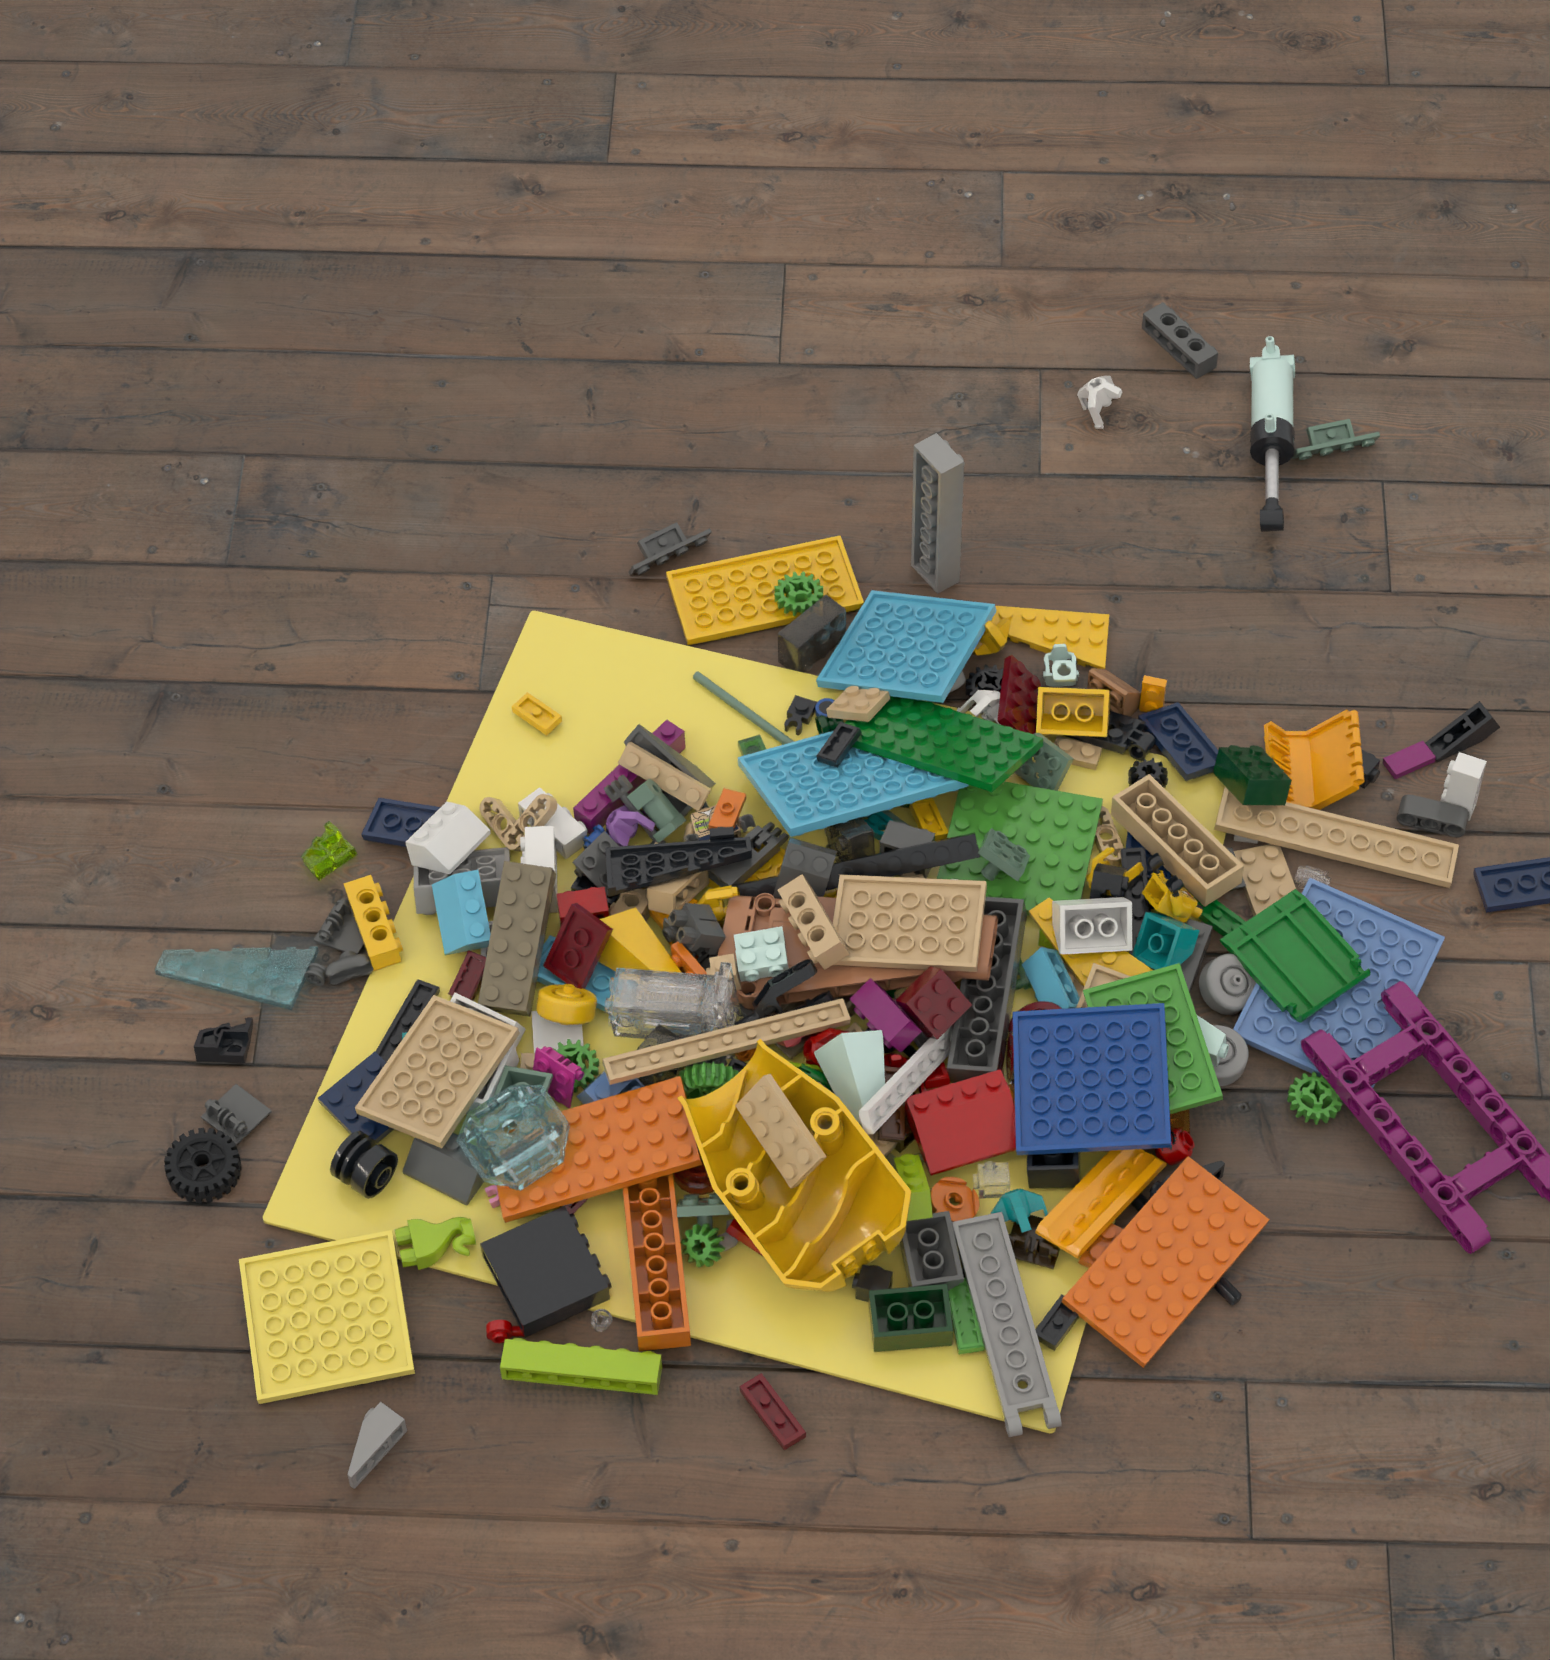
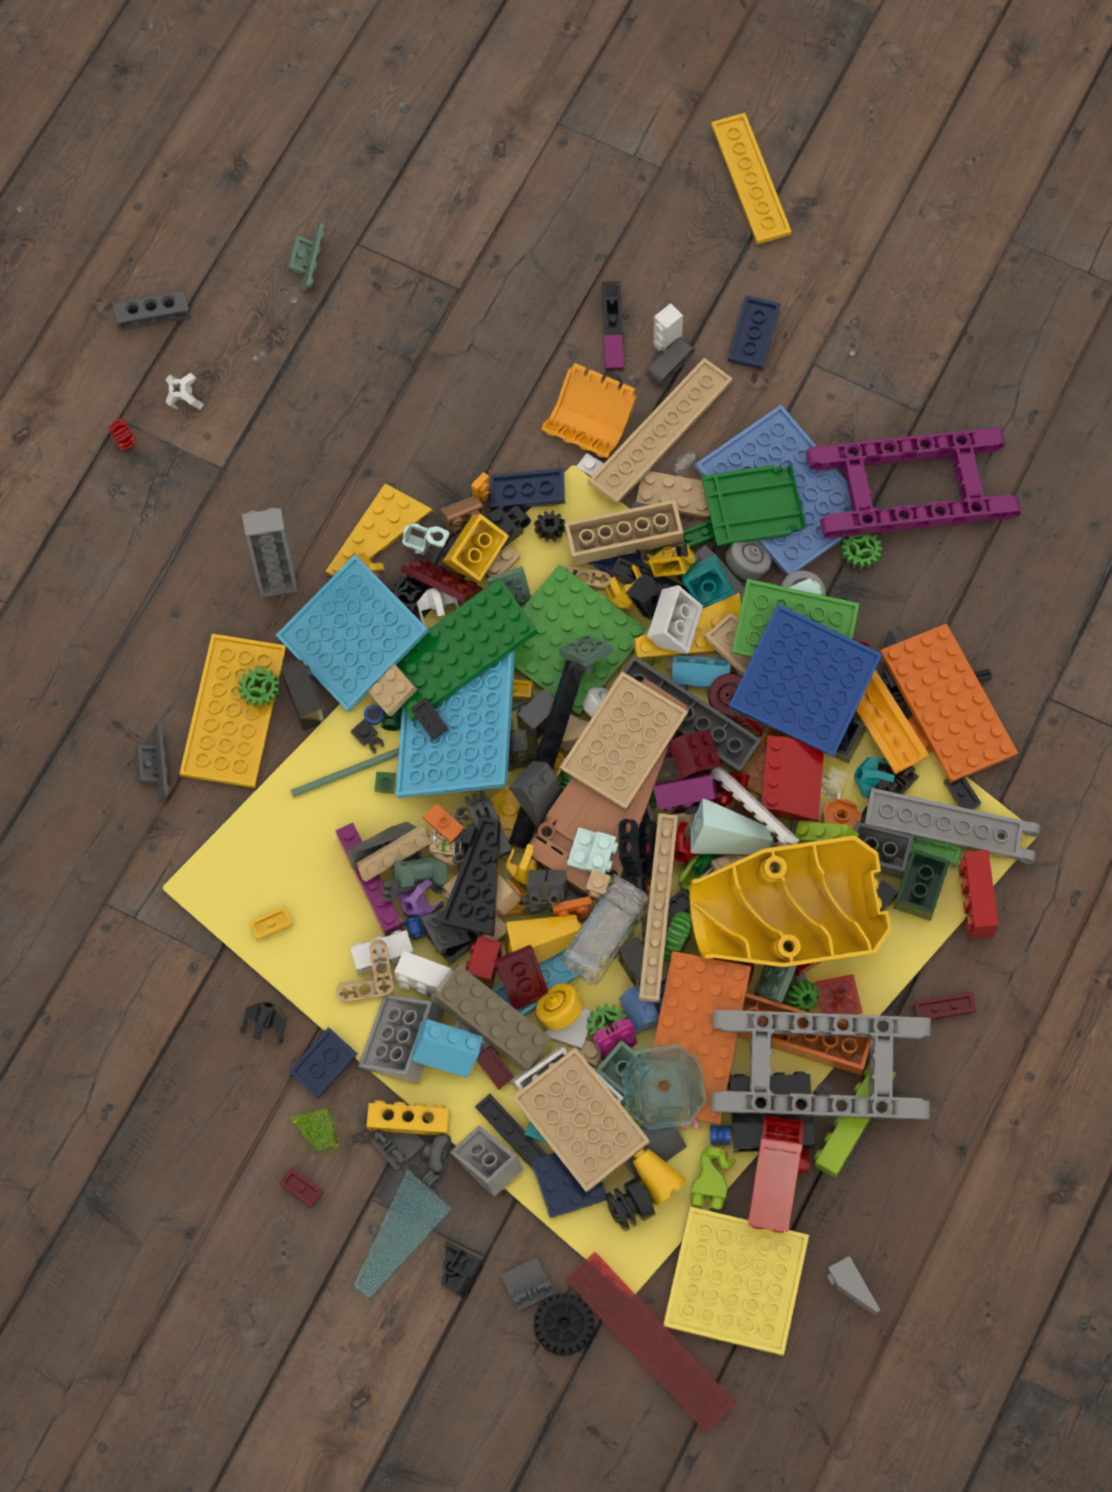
camera: 65 degrees left, 15 degrees up
(215, 1258) = (651, 1342): none -> clear red plate
(254, 862) = (301, 1188): none -> dark red plate
(357, 1014) = (487, 1160): none -> light grey slope
(409, 1176) = (657, 1175): none -> yellow cone
(429, 750) = (266, 1016): none -> black piece
(446, 838) = (365, 1033): white slope -> none
(464, 1289) = (776, 1173): none -> brick
(491, 1224) = (720, 1134): none -> blue wheel
(646, 1352) = (823, 1025): none -> light grey beam
(722, 1288) = (839, 991): none -> clear red plate
(780, 1131) = (762, 901): tan plate -> none
(813, 922) = (561, 802): tan brick -> none
(929, 1383) = (979, 894): none -> red brick
(1020, 370) = (122, 434): none -> red gear
(1252, 775) = (591, 458): dark green brick -> none
(1272, 424) = (274, 289): piece -> none

